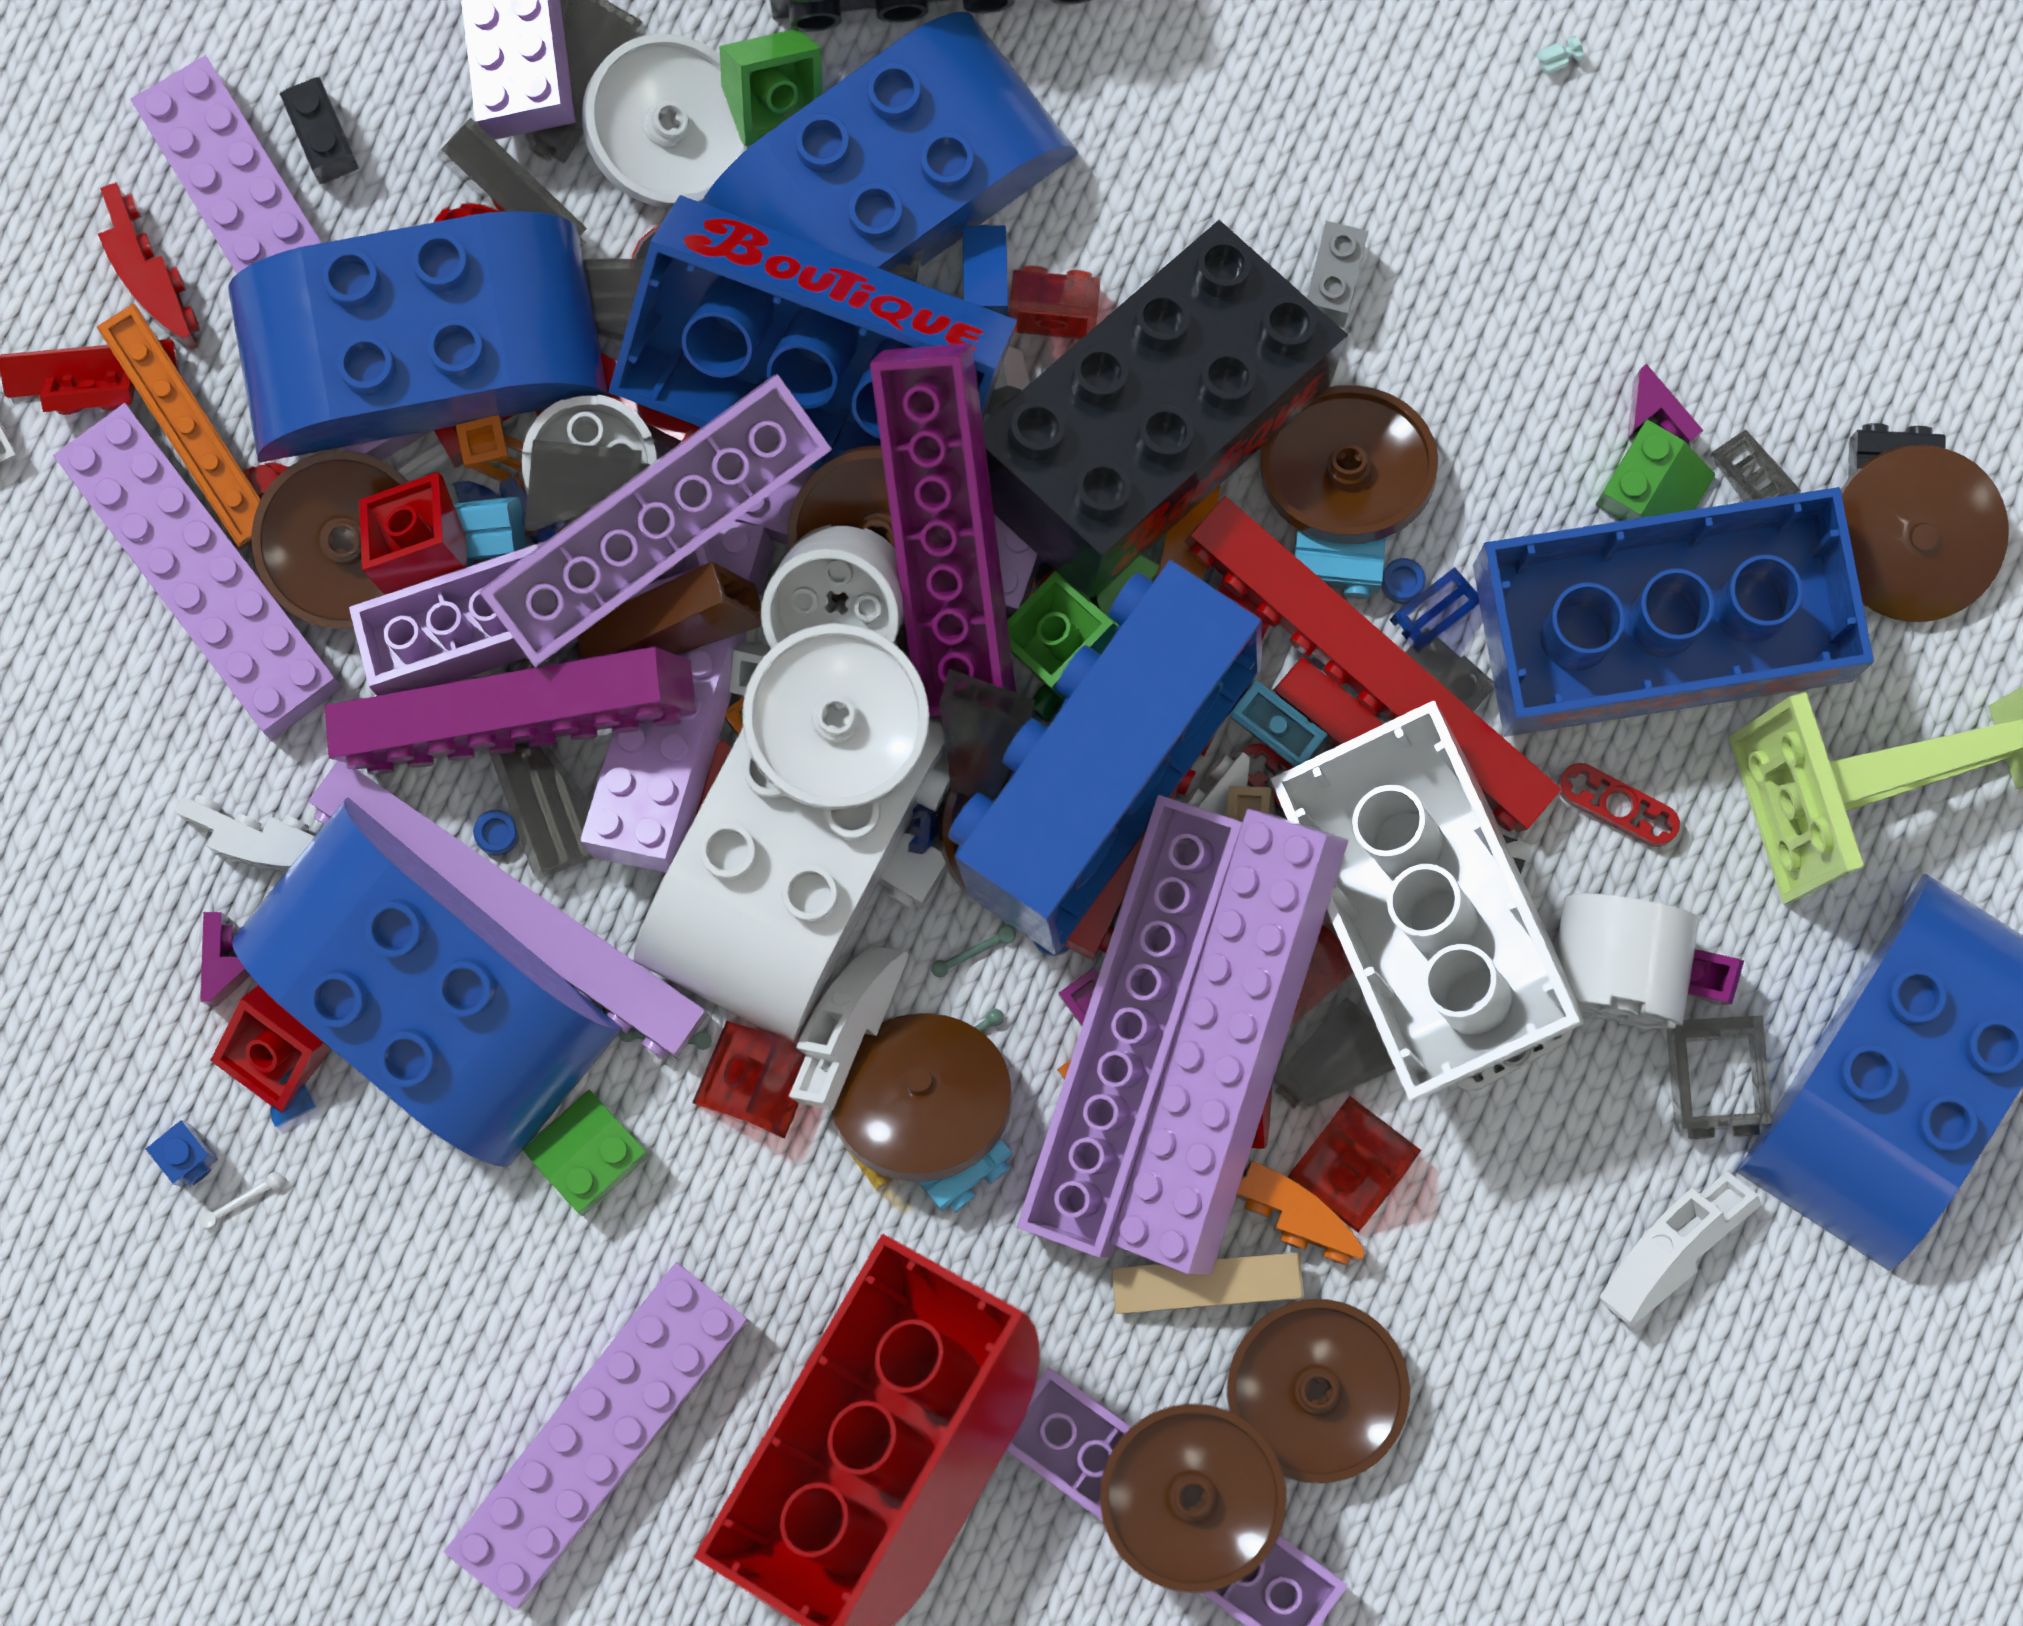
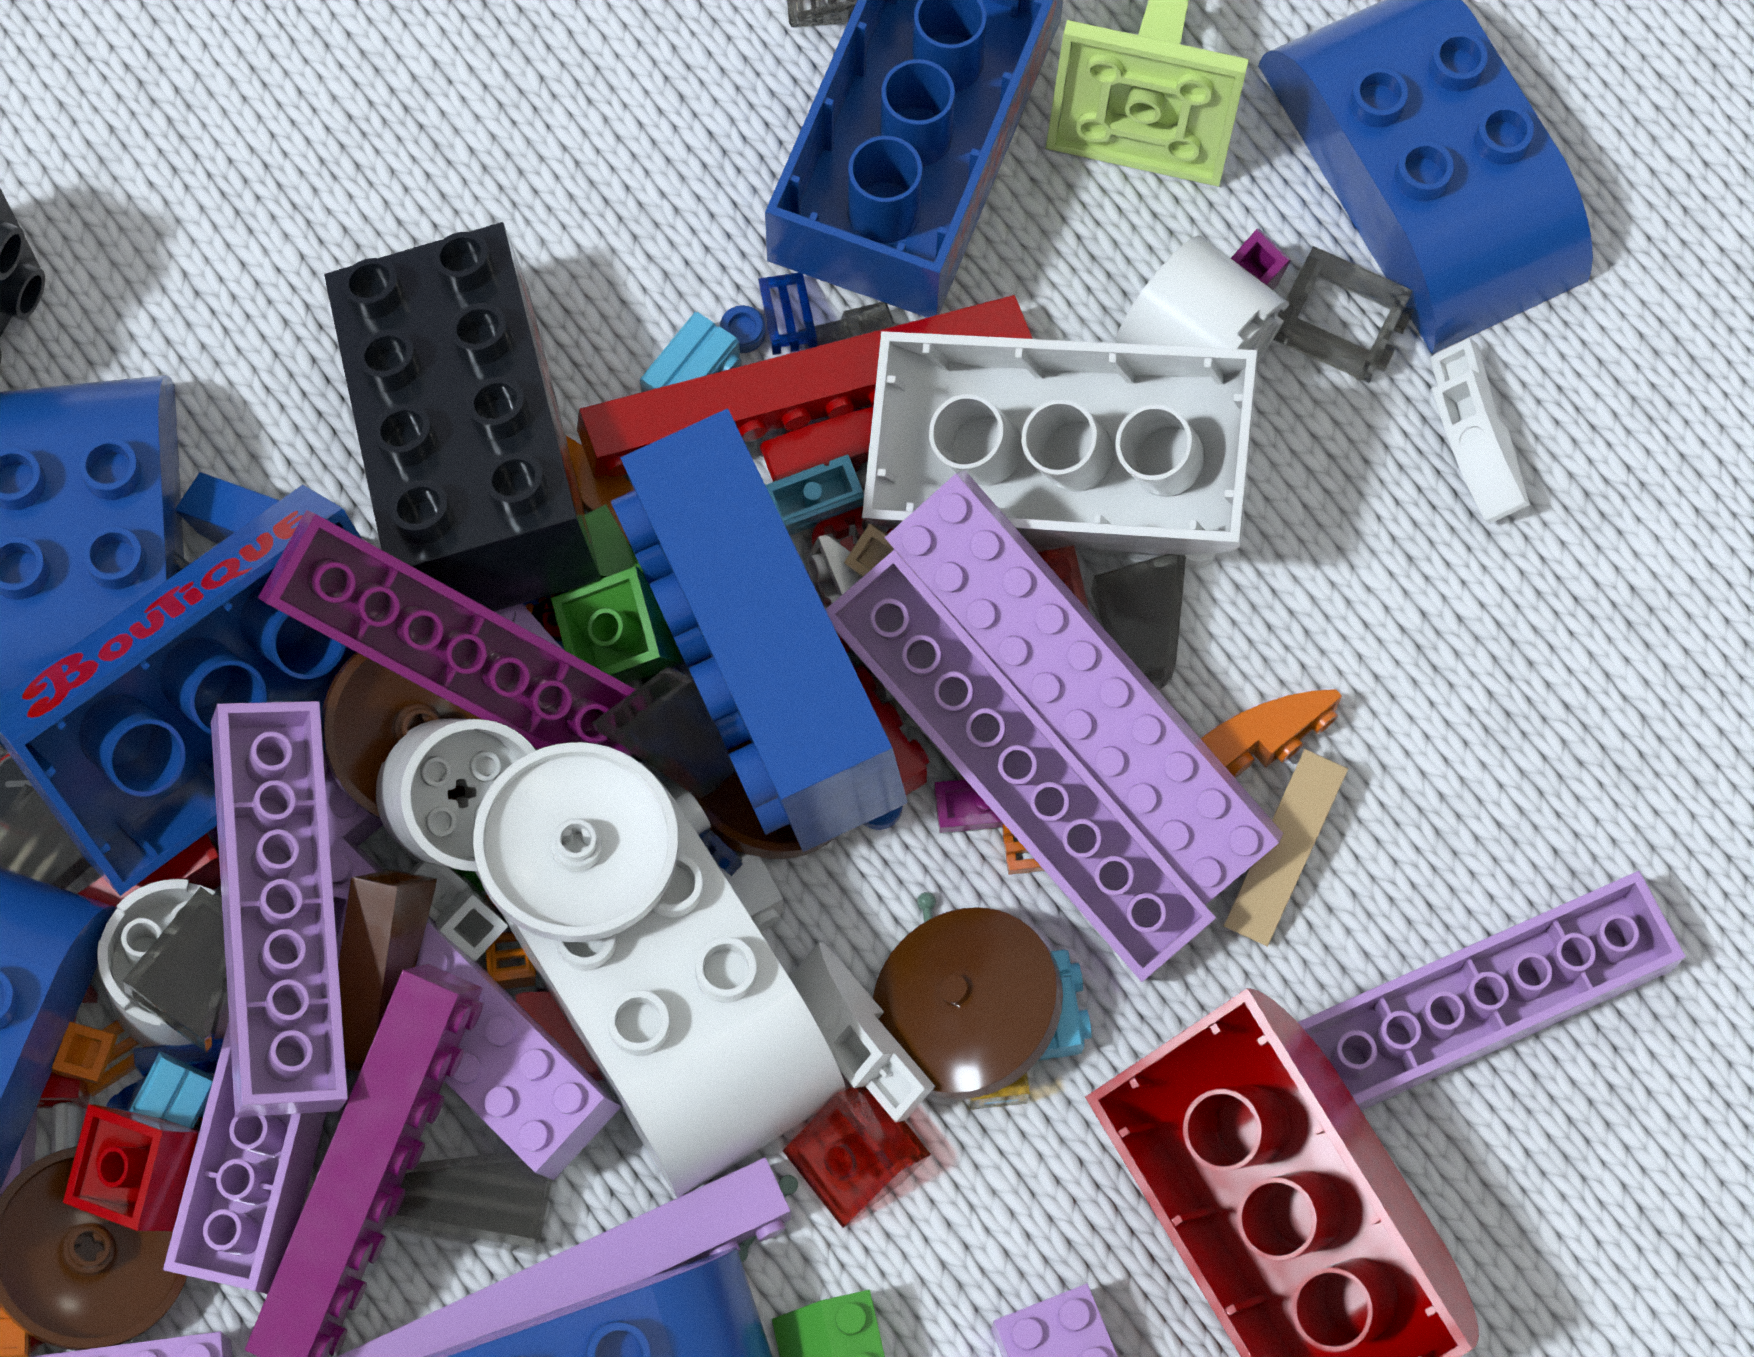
camera: 60 degrees left, 10 degrees down
(495, 832) = (468, 1267): blue tile -> none
(1005, 935) = (854, 849): sand green hinge -> none
(1054, 302) = (305, 455): clear red slope -> none
(1193, 1498) = (1491, 955): reddish brown dish -> none
(1321, 1388) = (1441, 803): reddish brown dish -> none
(1337, 270) = (422, 213): light grey brick -> none
(1351, 466) = (615, 306): reddish brown dish -> none
(1354, 1163) = (1247, 656): clear red slope -> none
(1643, 829) = (1058, 247): red beam -> none
(1655, 401) = (717, 36): magenta slope -> none
(1656, 477) = (780, 75): bright green slope -> none

